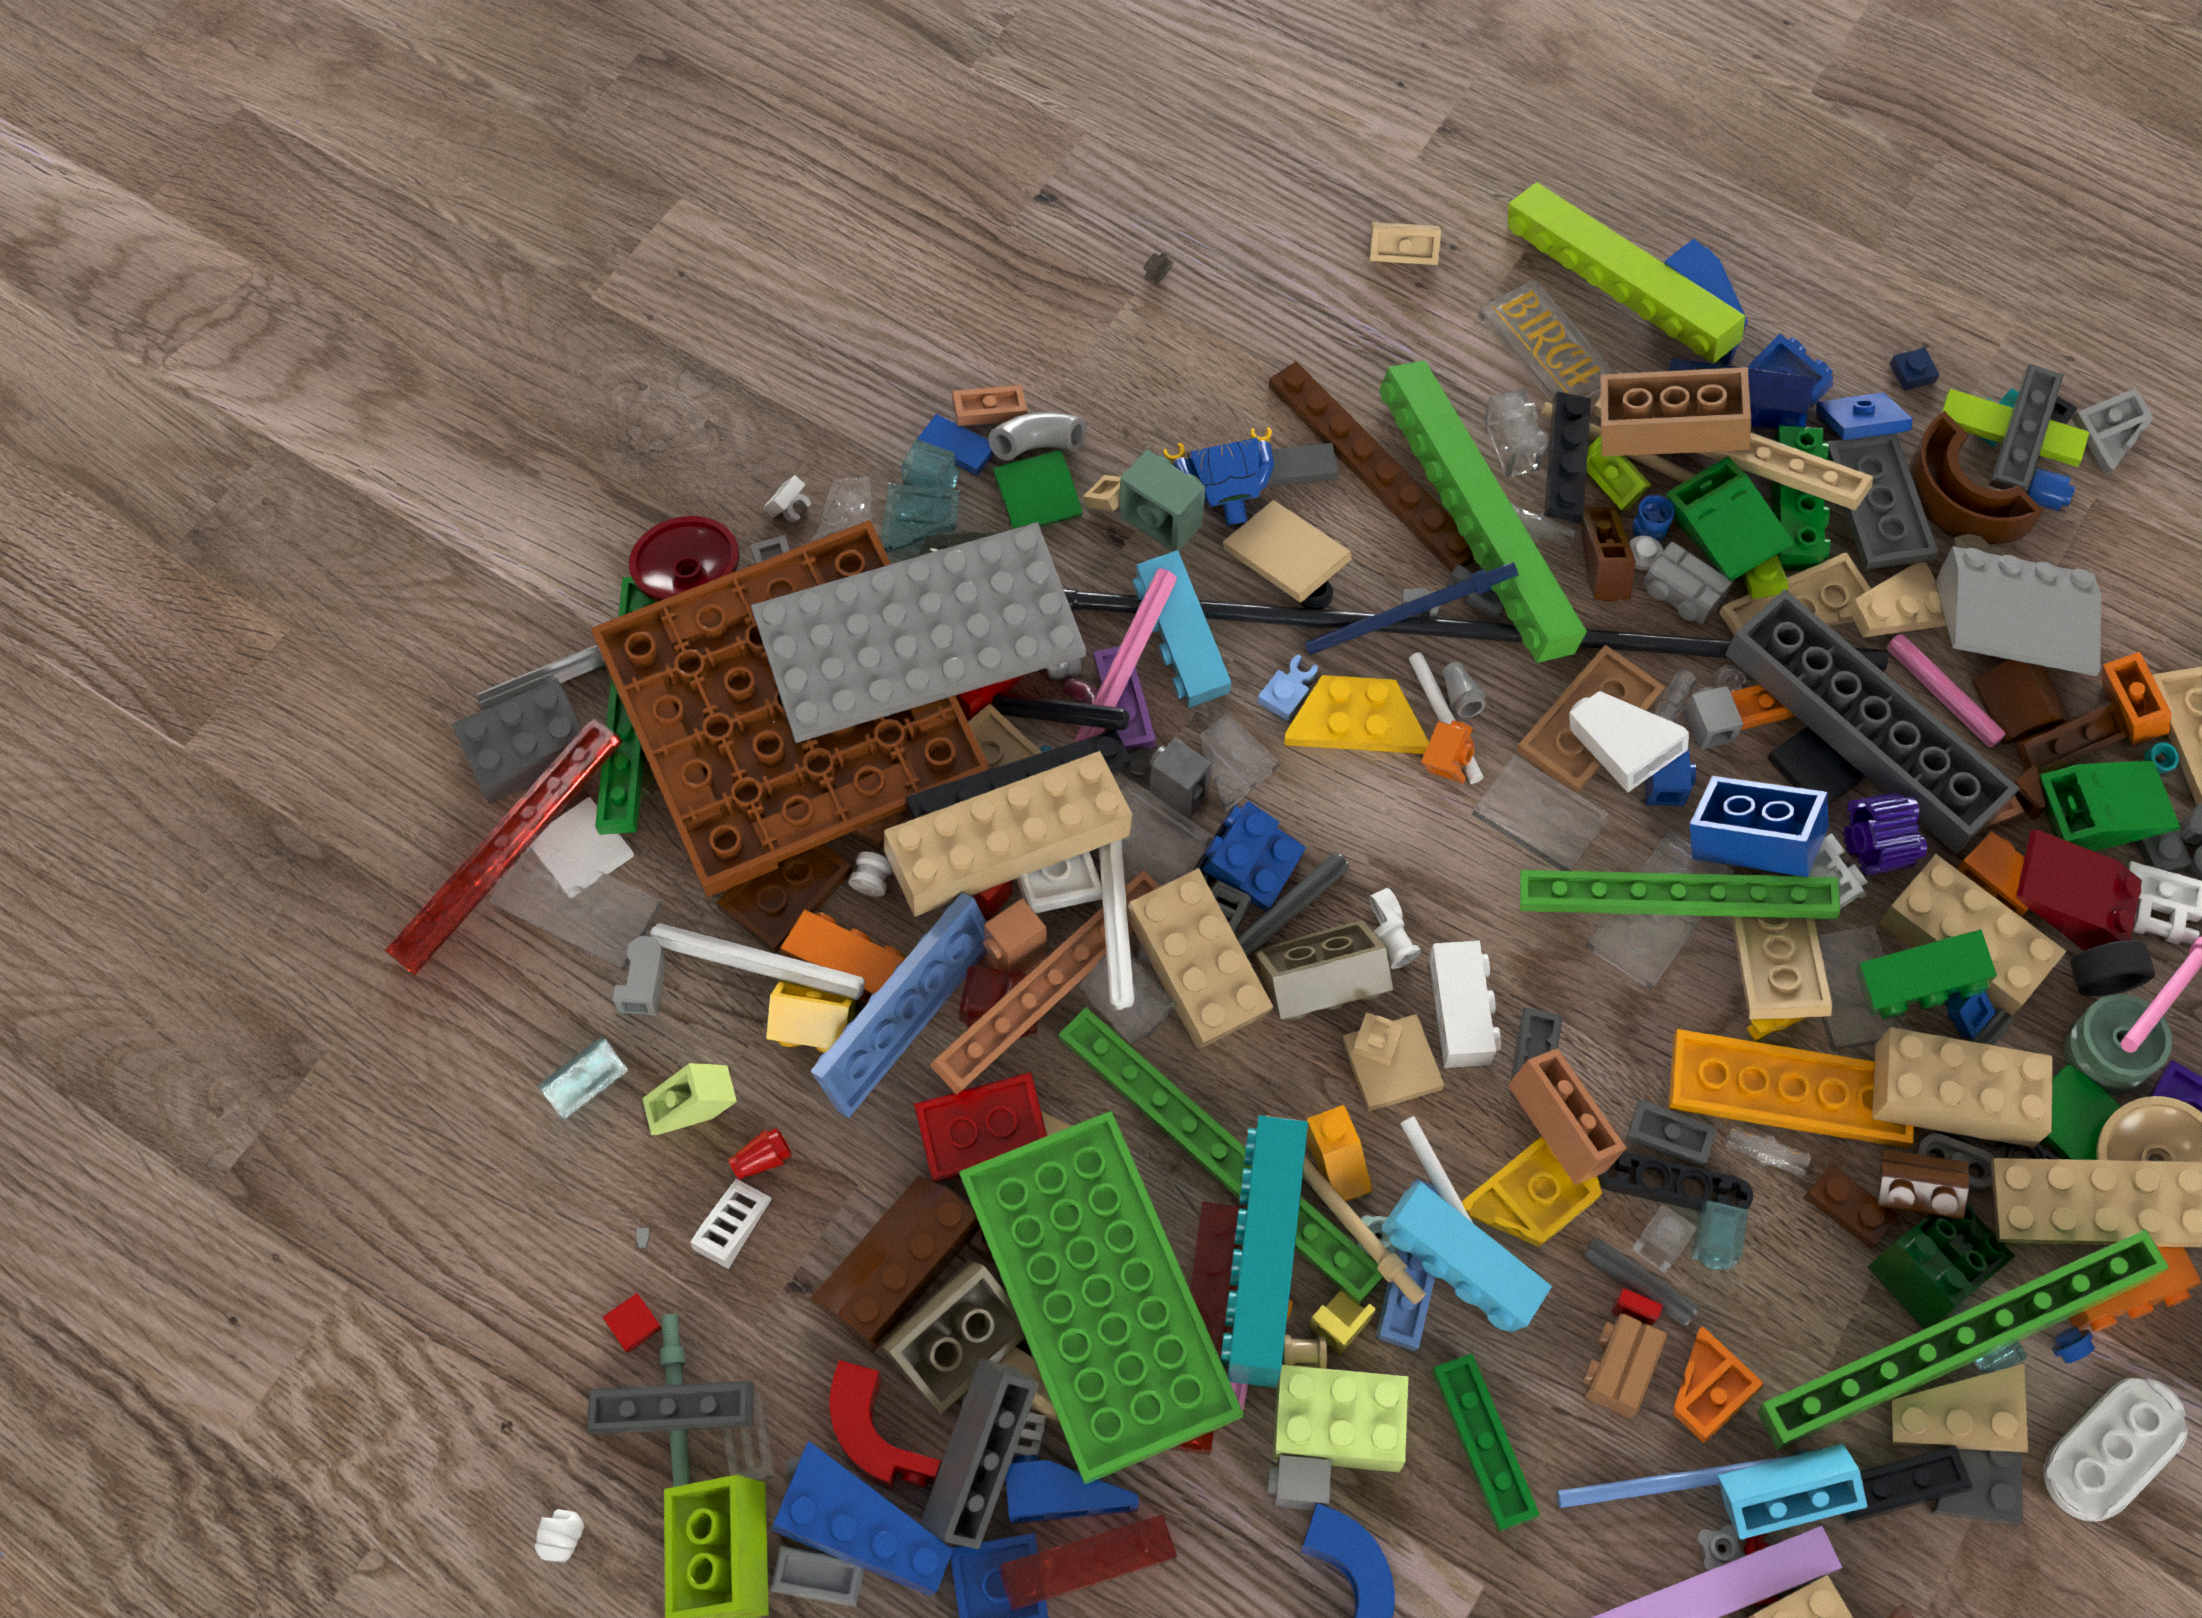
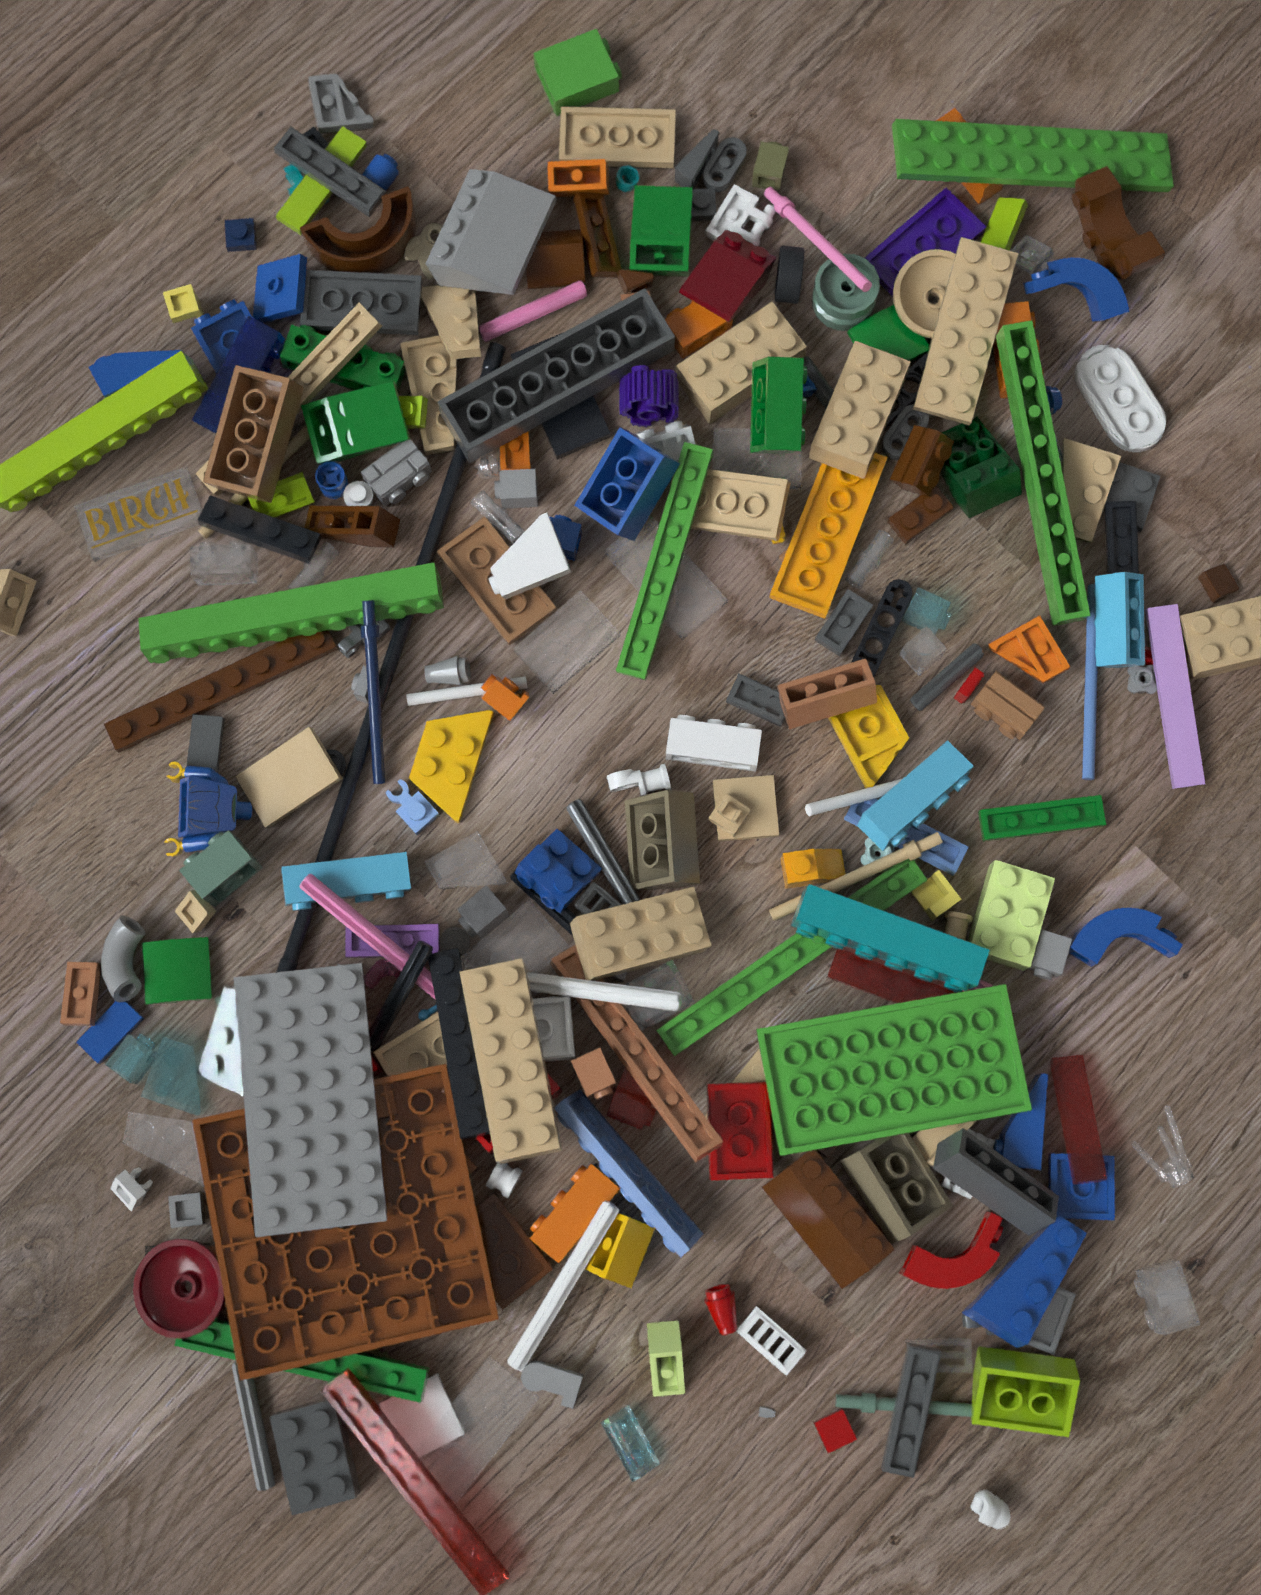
camera: 75 degrees left, 15 degrees up
(1807, 324) = (182, 303): none -> light yellow panel

